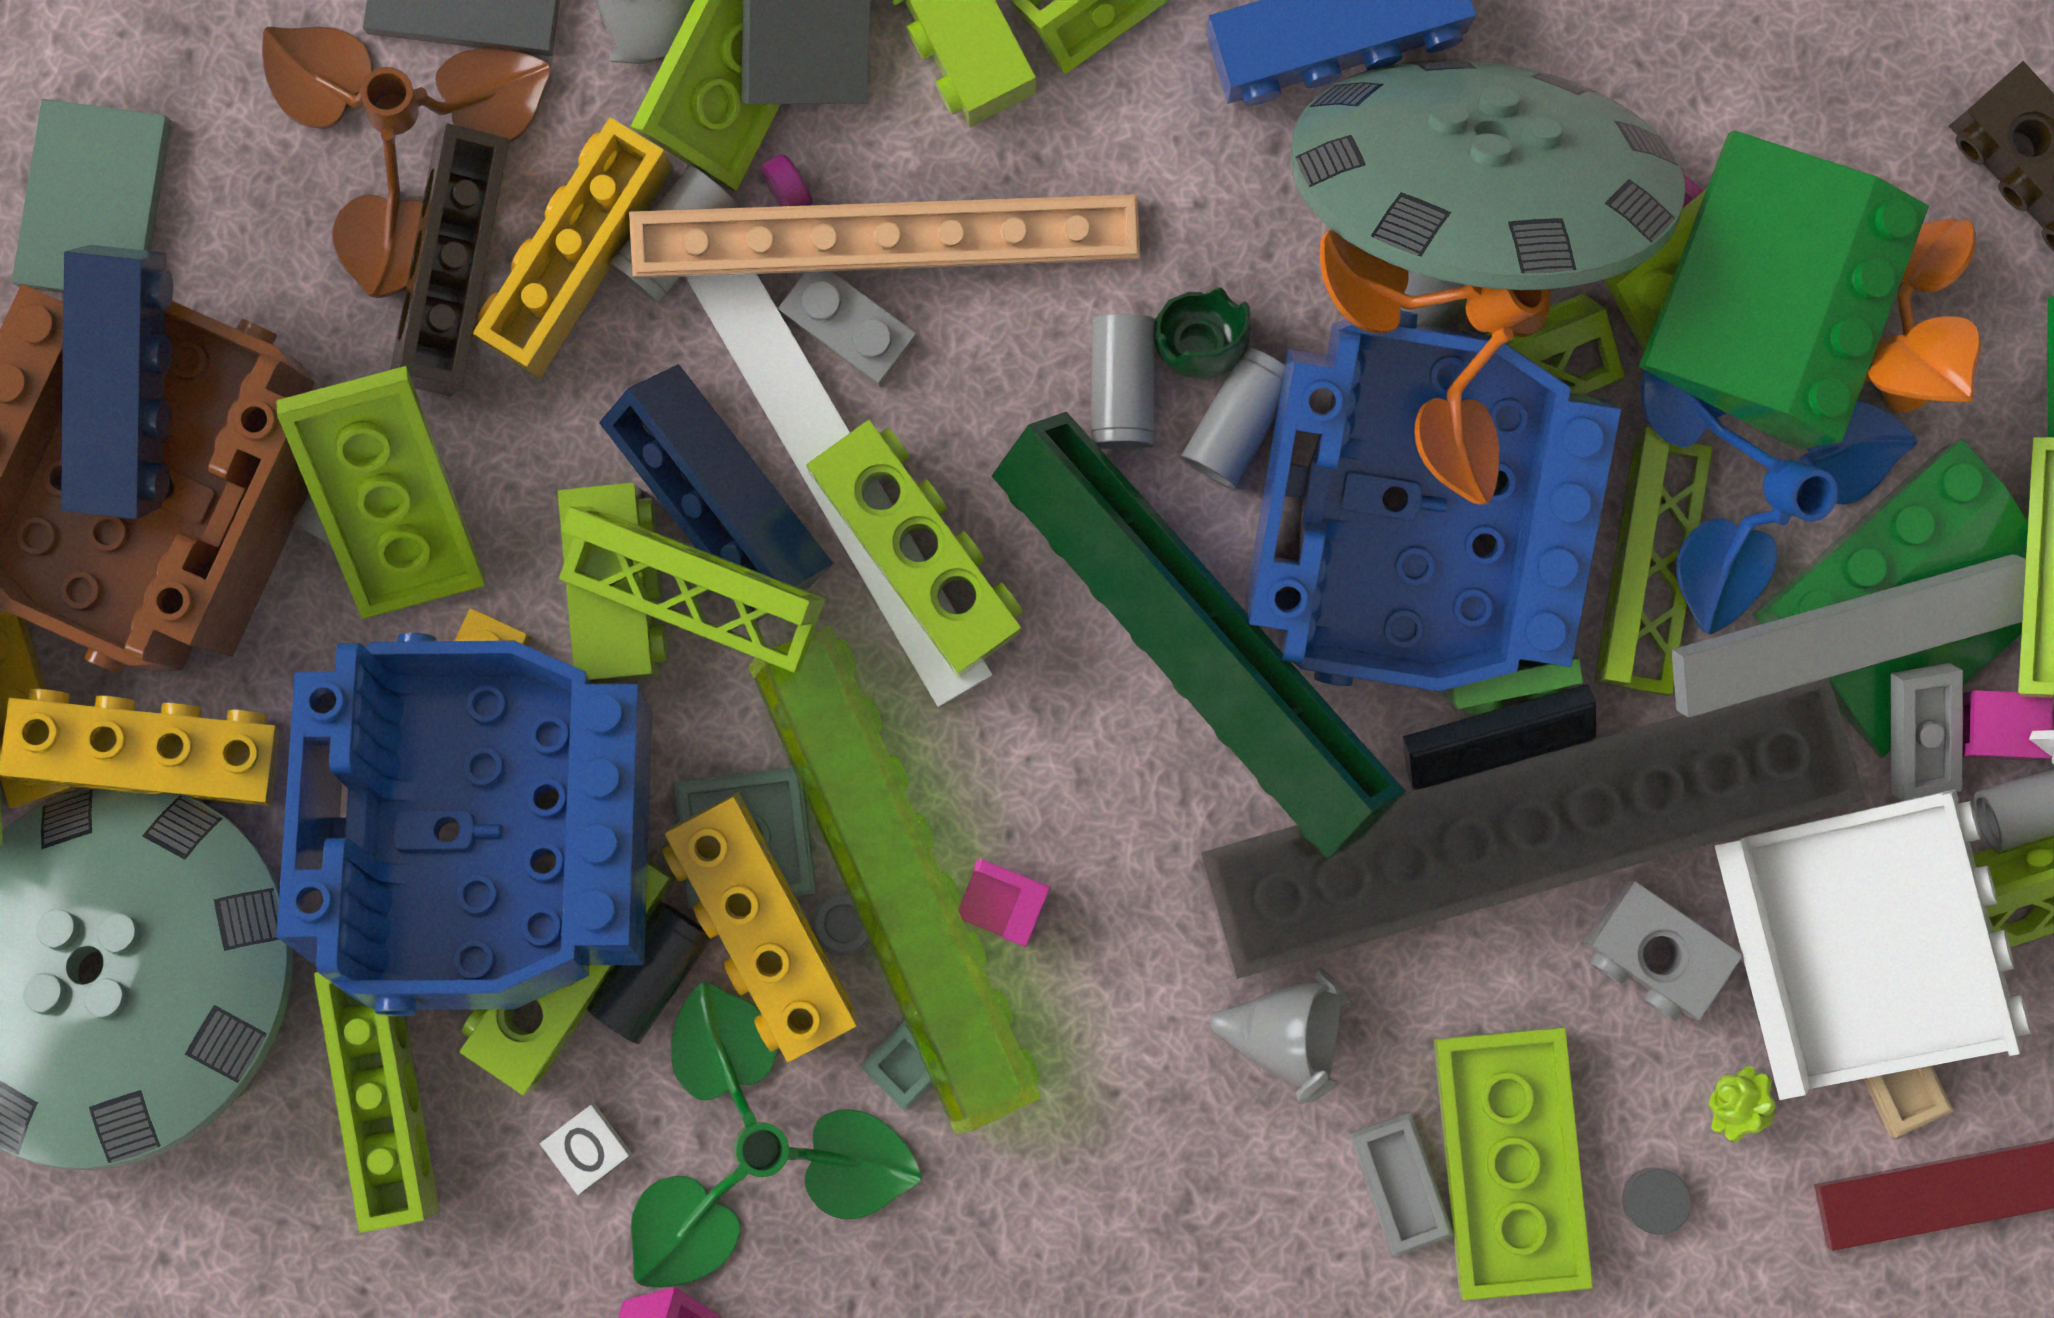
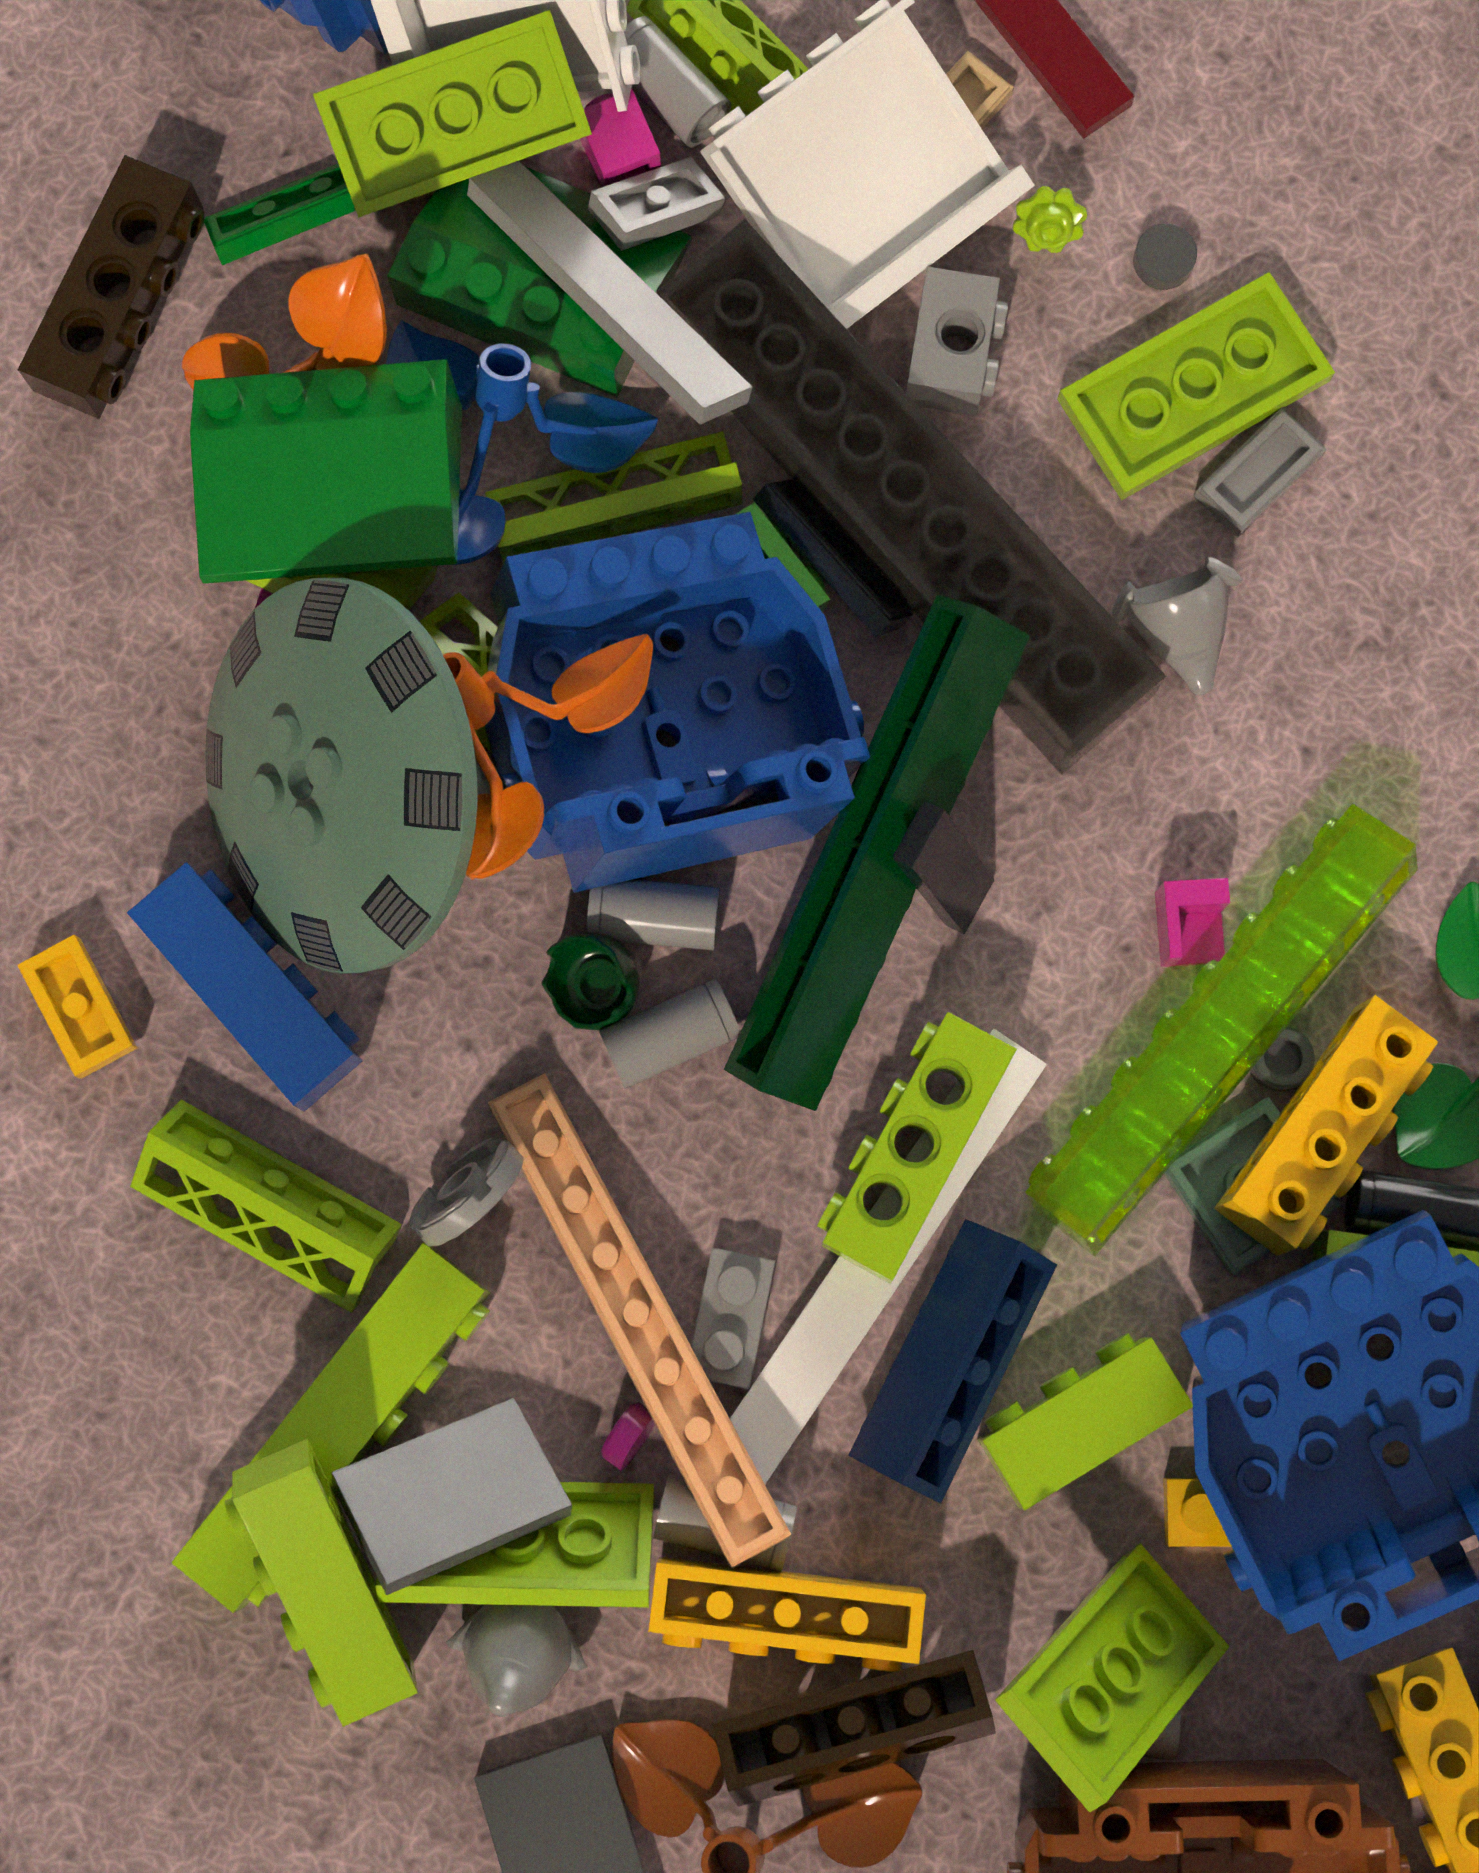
camera: 120 degrees left, 5 degrees down
(689, 566) = (1045, 1334): lime fence -> none
(898, 1068) = (1383, 949): sand green tile -> none
(1056, 128) = (474, 1188): none -> light grey tile
(1152, 684) = (943, 867): none -> black tile

